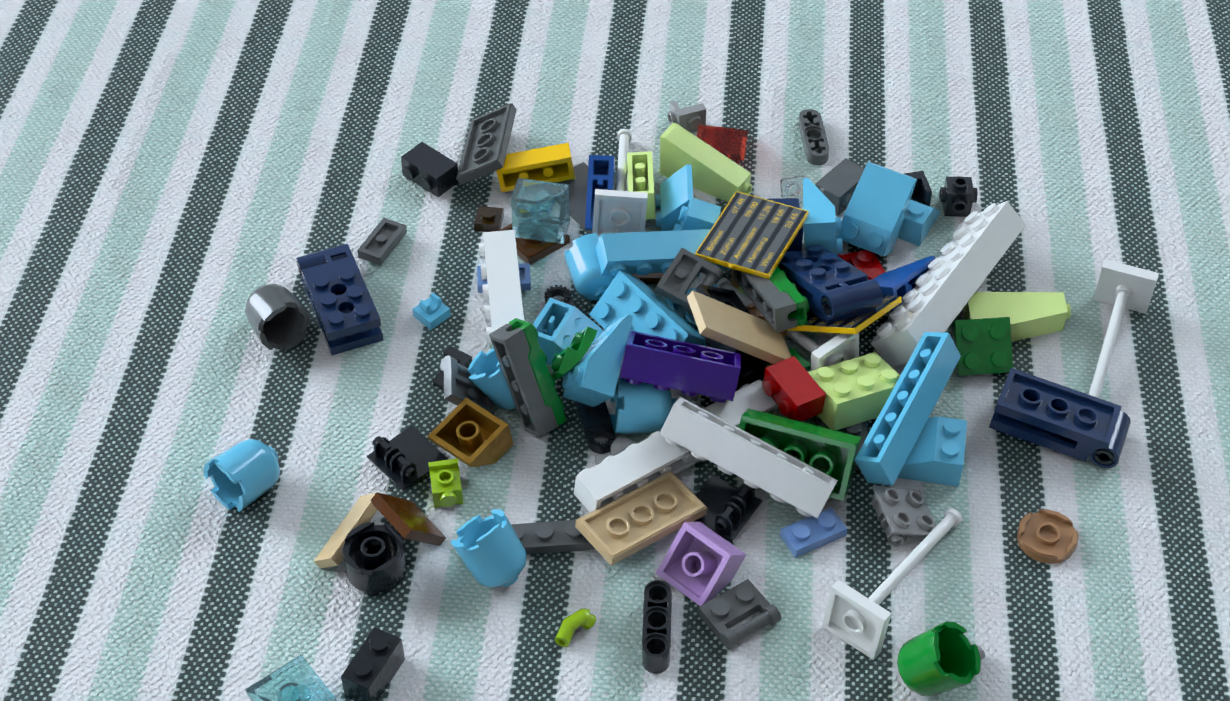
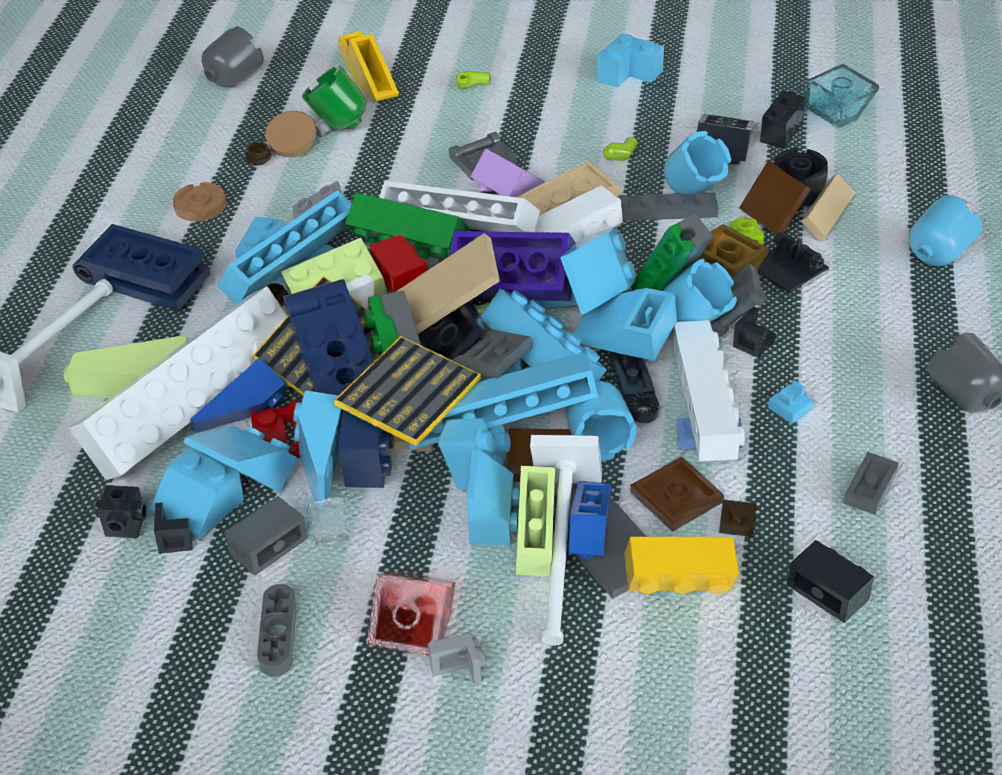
camera: 175 degrees left, 5 degrees down
(340, 299) = (904, 405): dark blue hinge -> none
(447, 644) = (732, 131): none -> black slope
(486, 143) = (753, 605): dark grey tile -> none
(540, 210) = (669, 470): clear light blue slope -> none
(570, 357) = (623, 277): green slope -> none
(656, 638) = (552, 142): black beam -> none
(711, 170) = (450, 555): yellowish green slope -> none
(860, 618) = (388, 128): white tile -> none
(983, 345) = (173, 327): green plate -> none
(985, 630) = (291, 133): none -> medium nougat tile
(1010, 601) = (258, 153): none -> dark brown plate

